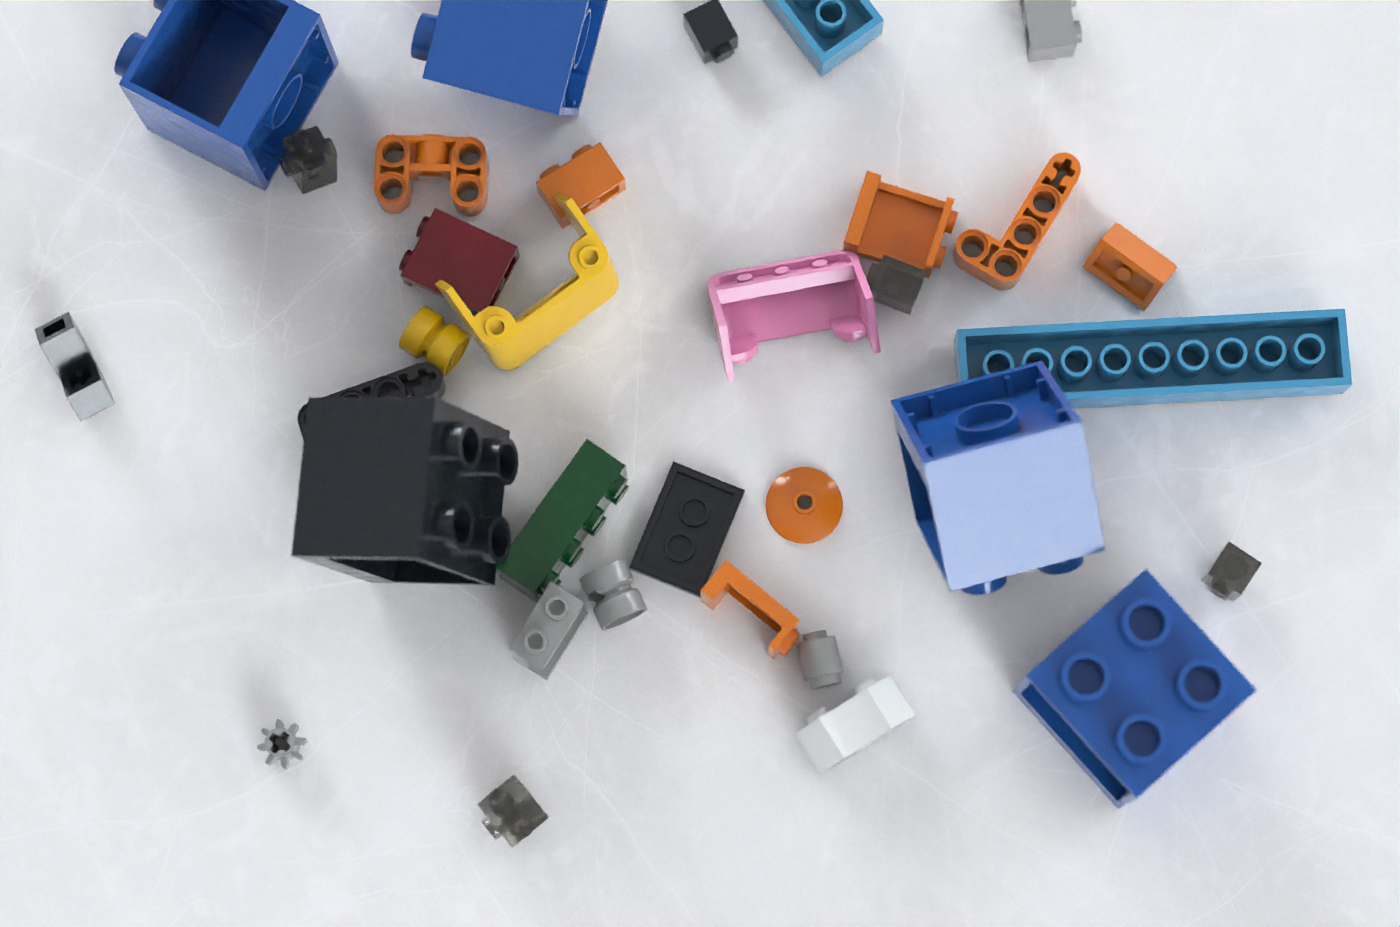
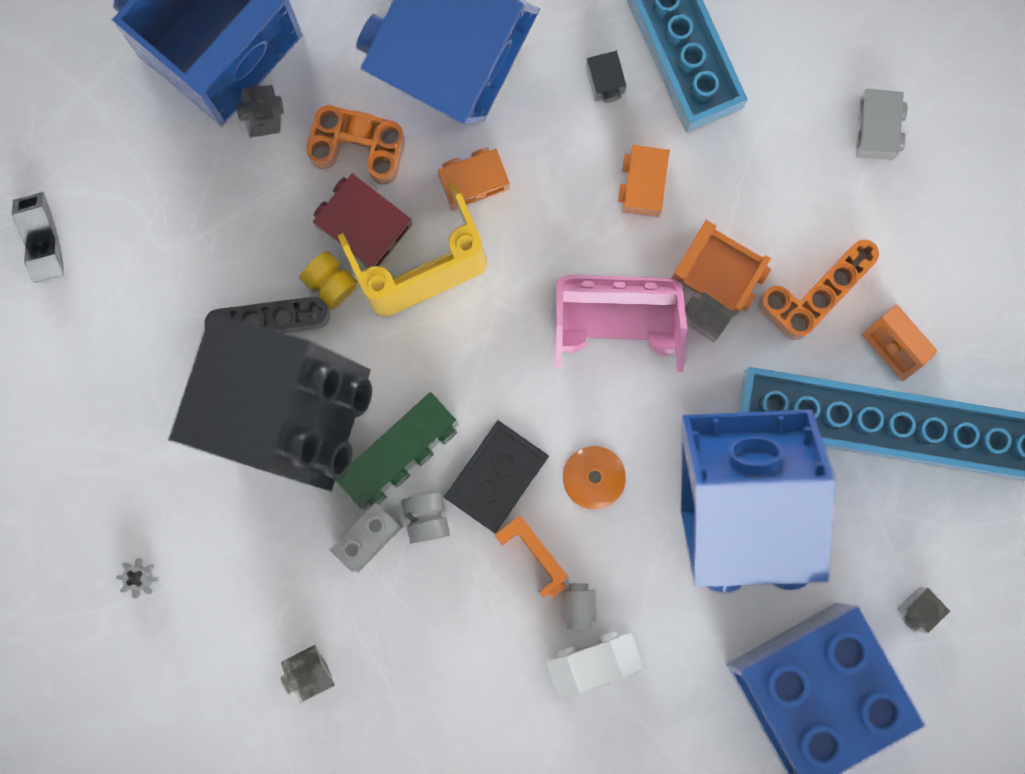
camera: 10 degrees right, 5 degrees up
(784, 141) = (645, 180): none -> orange brick

